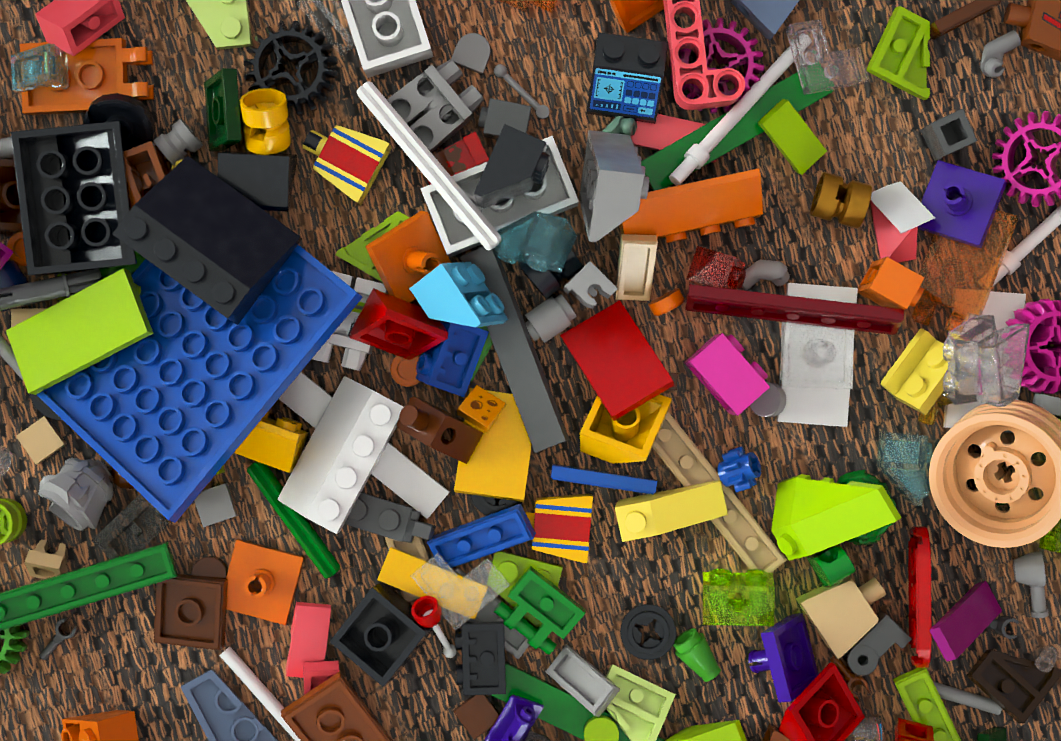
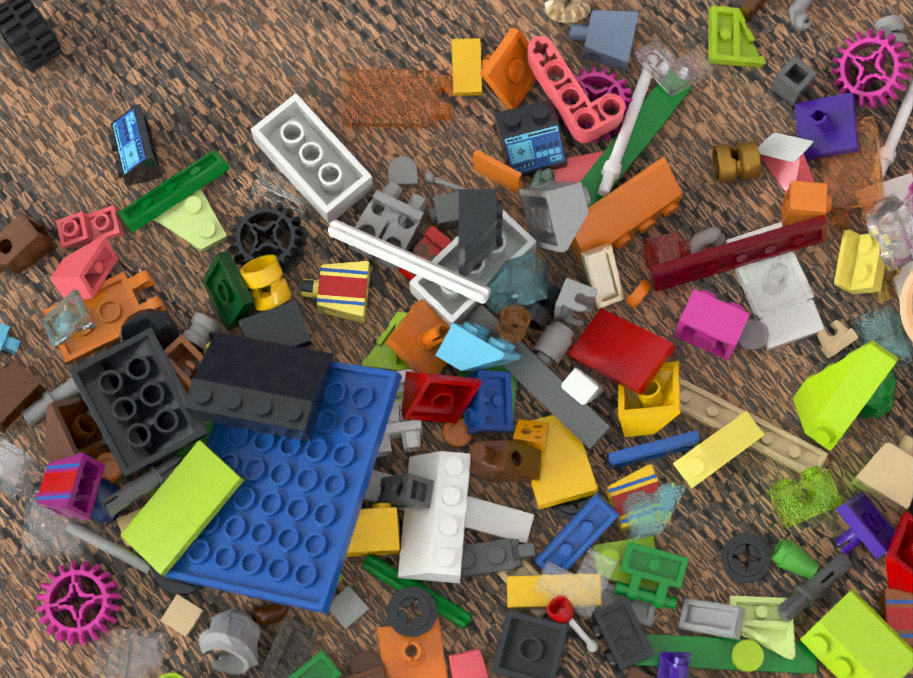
camera: 20 degrees left, 15 degrees down
(260, 543) = (399, 619): none -> black gear
(319, 418) = (406, 491): none -> dark grey leg
(519, 278) = (513, 315): none -> clear orange wheel
(557, 383) = (582, 387): none -> white slope
(568, 552) = (651, 512): none -> clear light blue slope
(573, 99) = (497, 171): none -> orange piece
(691, 699) = (813, 588): none -> dark grey axle
(739, 469) = (756, 396): blue gear -> none
(792, 136) = (676, 131): lime tile -> none
(831, 565) = (865, 438): green leg -> none
(854, 448) = (841, 339): none -> tan tile

